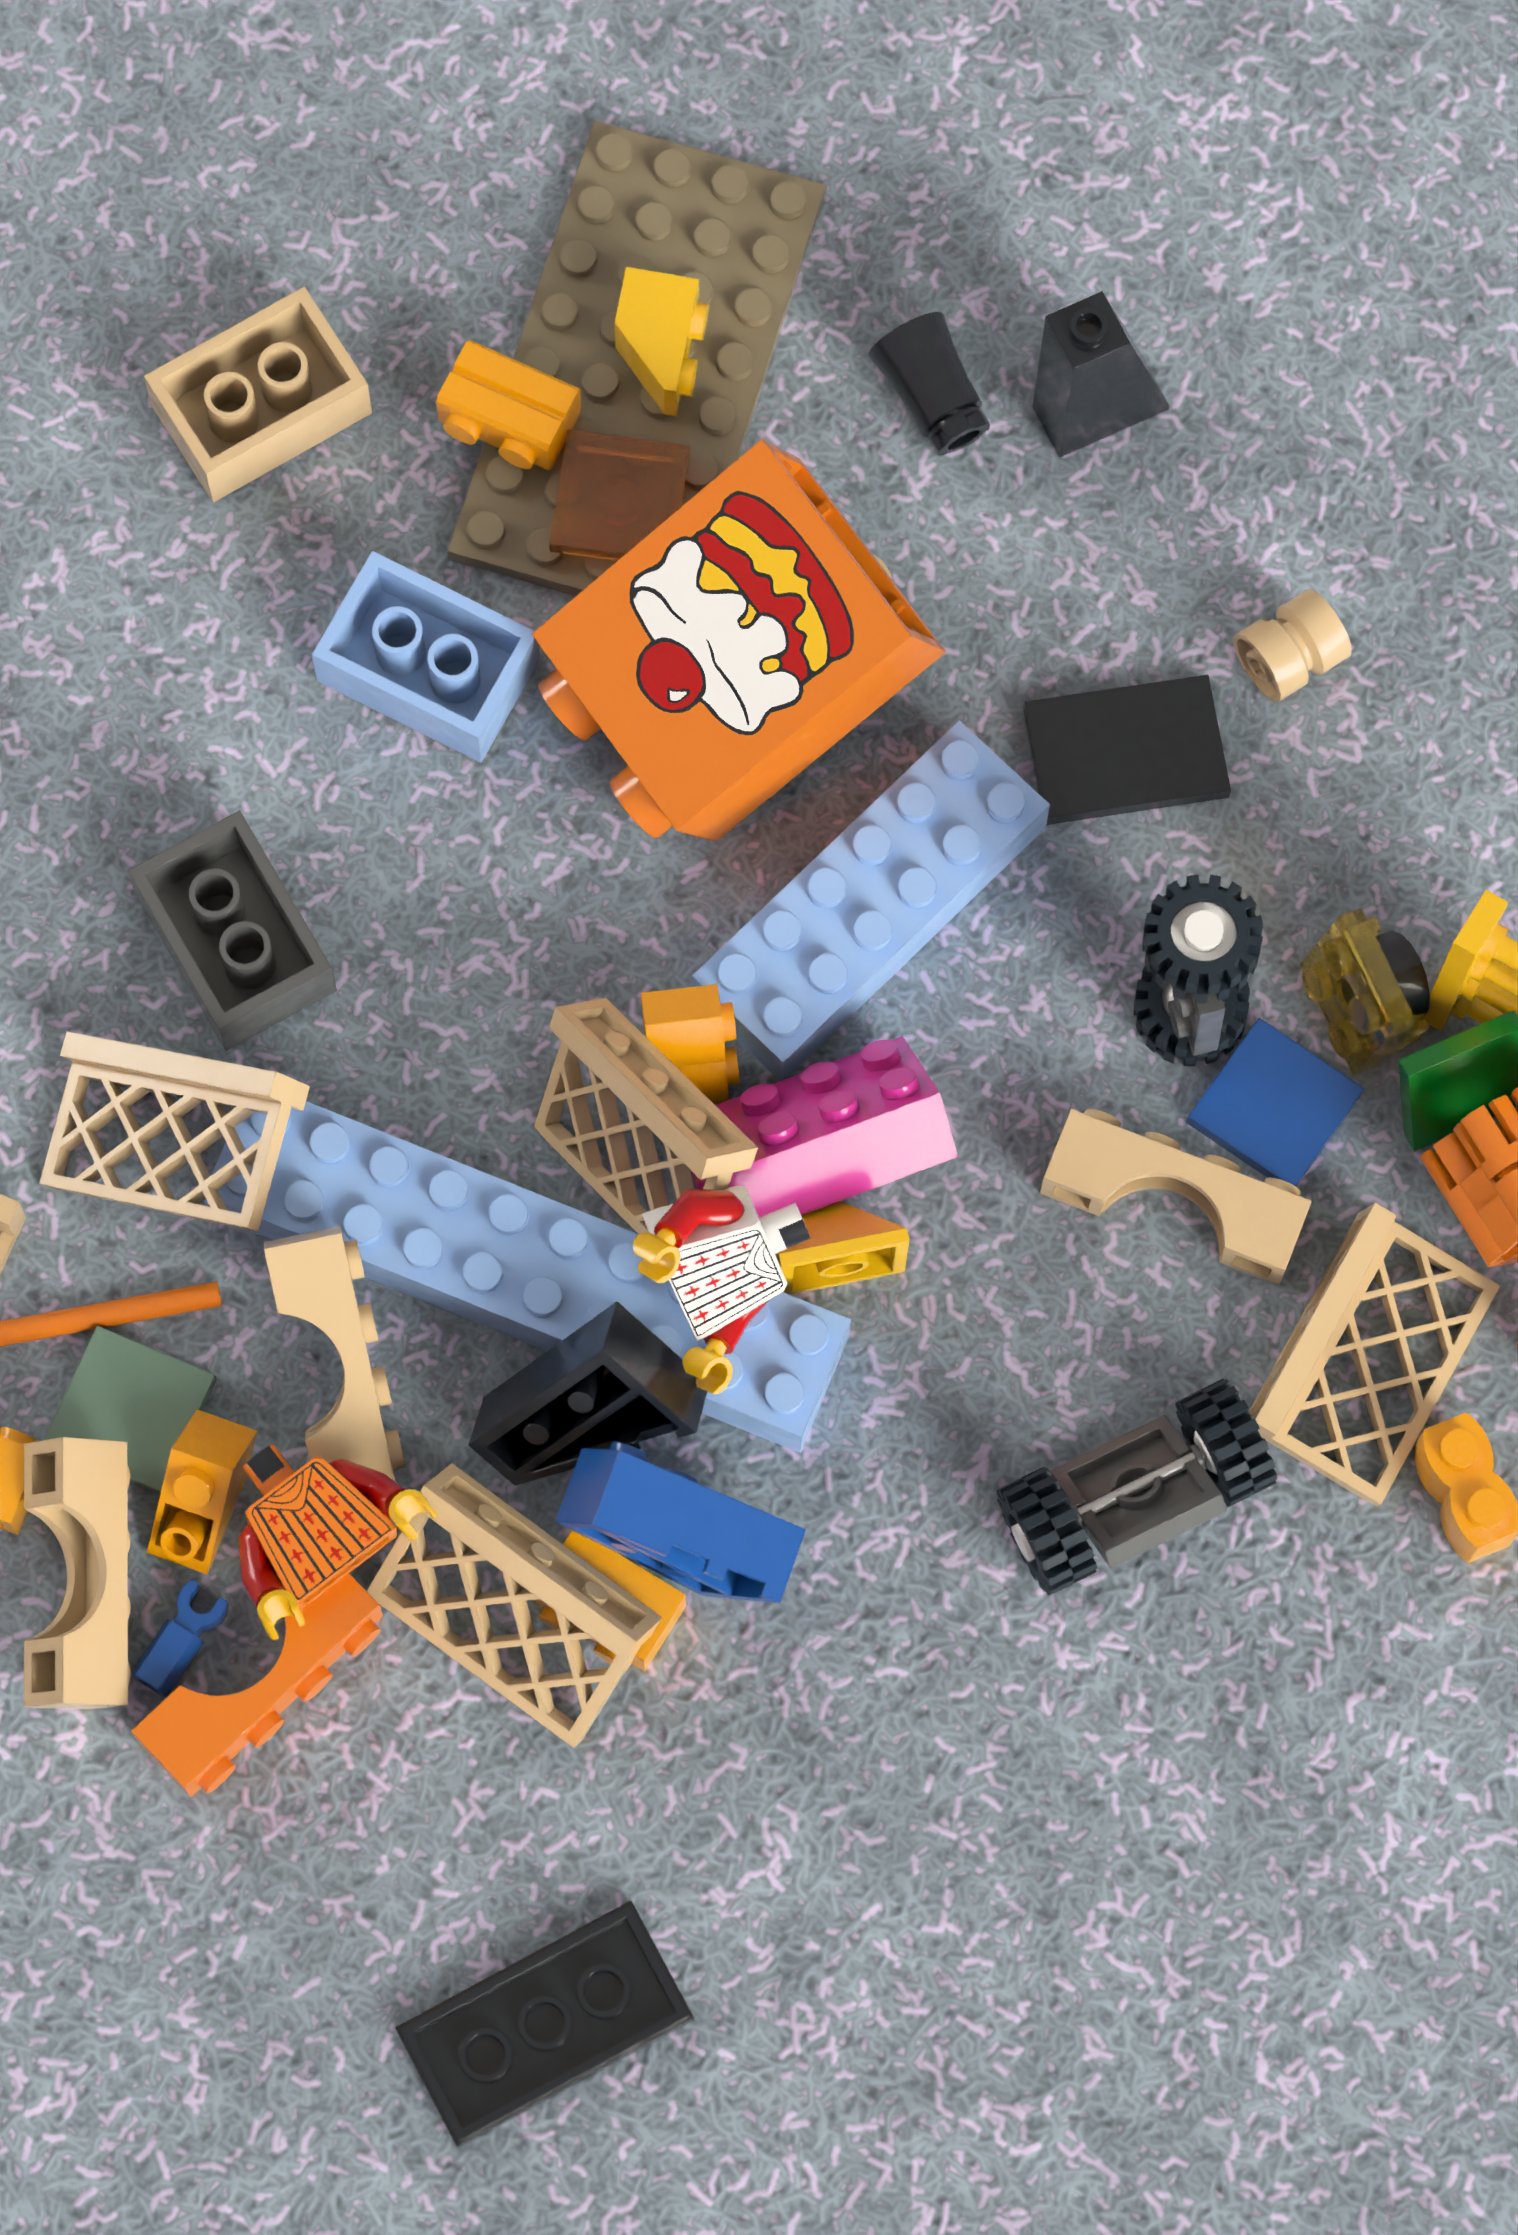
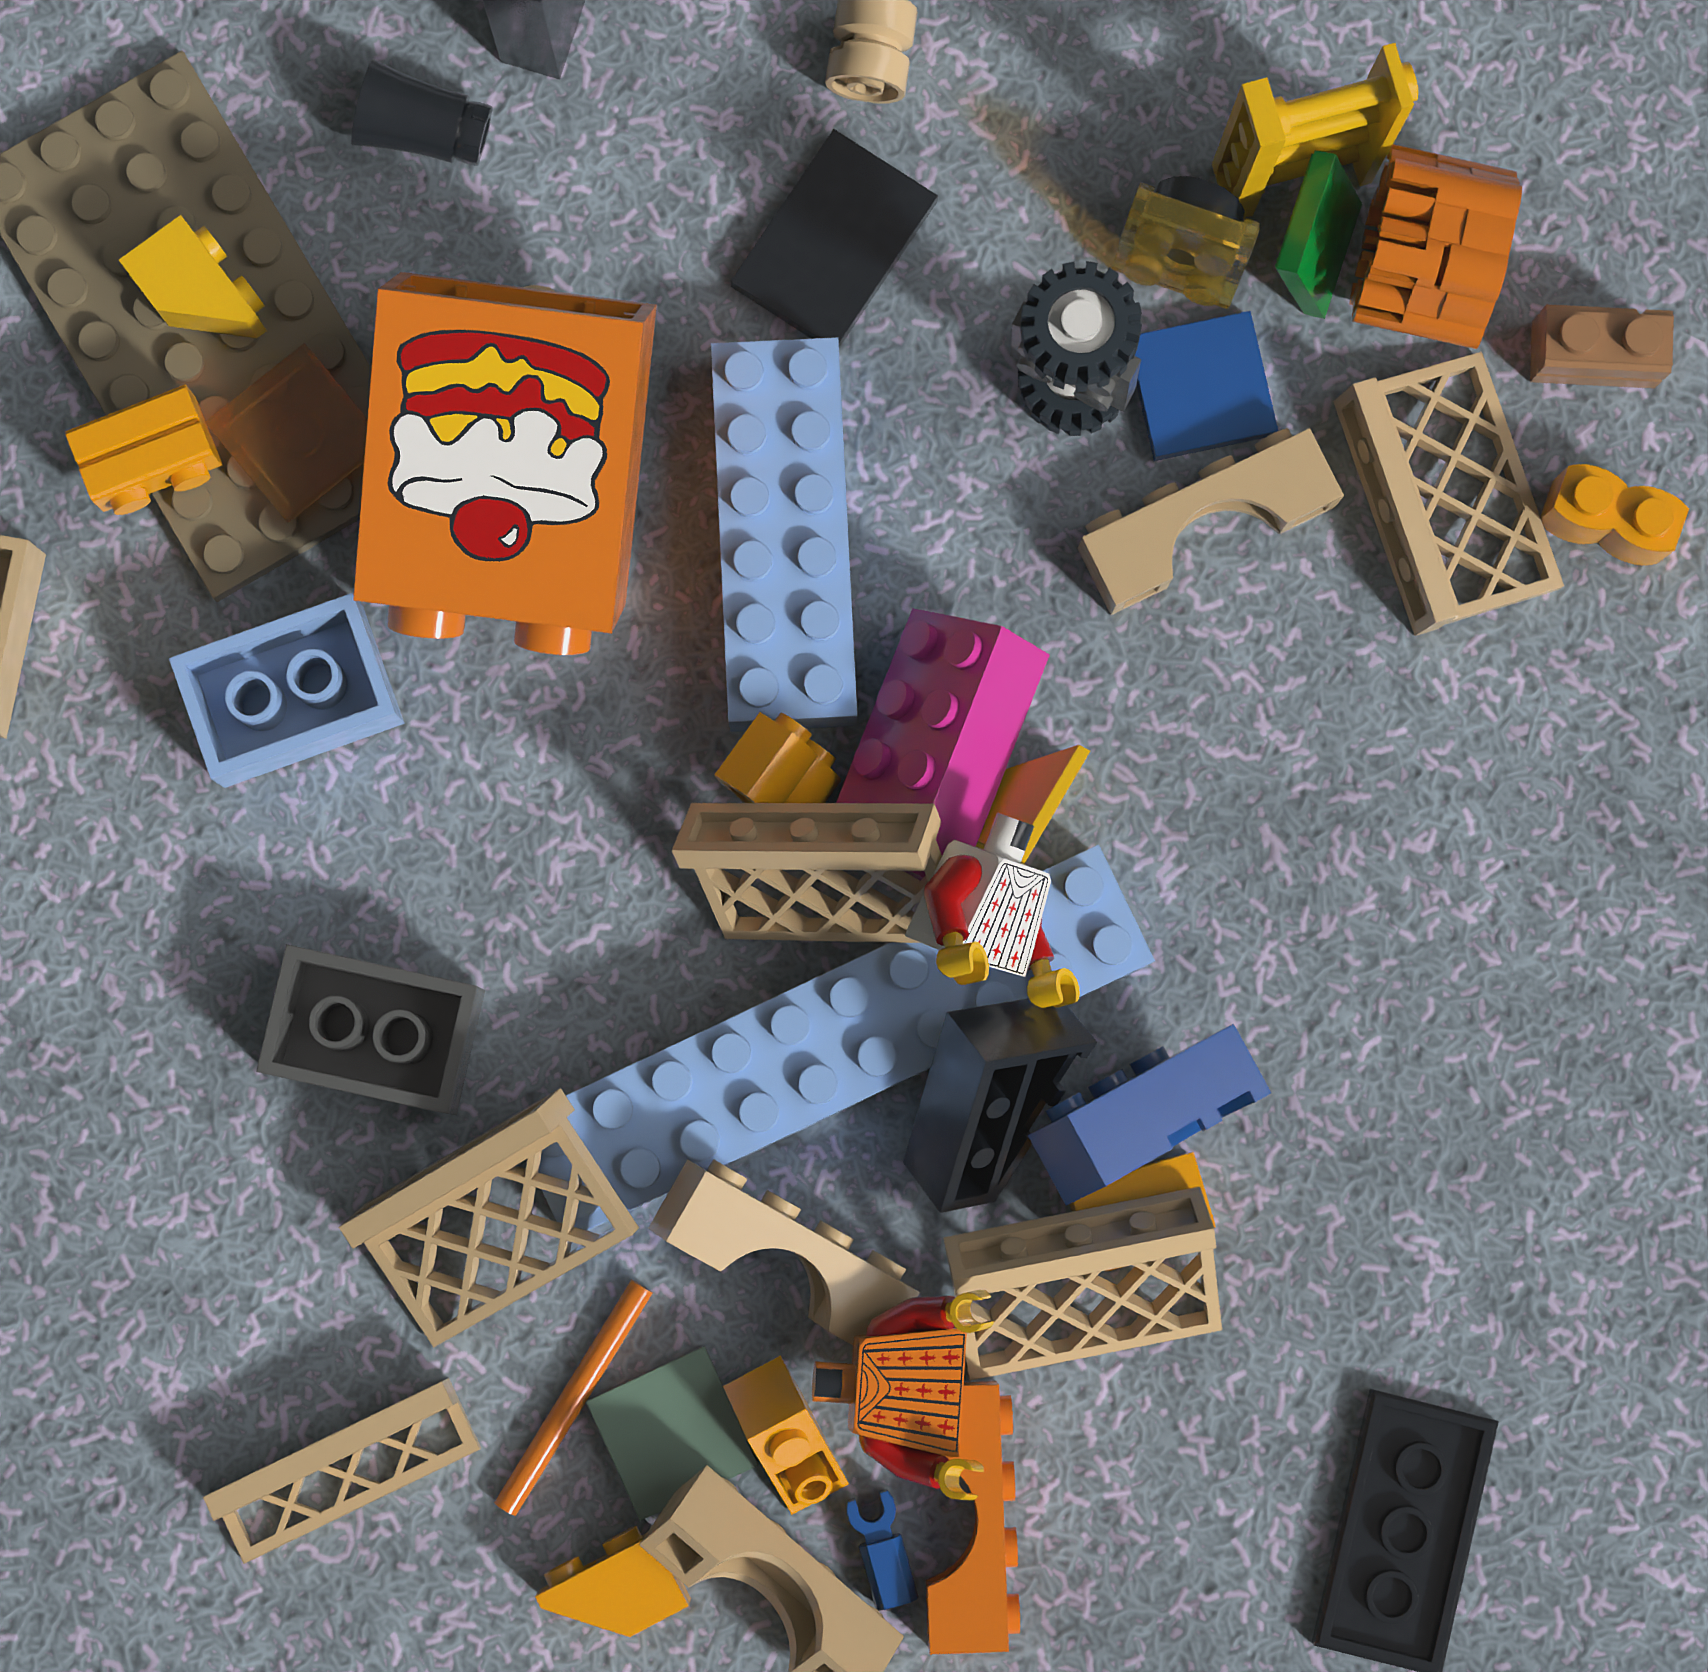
camera: 50 degrees left, 10 degrees up
(1138, 1488) = (1407, 750): plate -> none

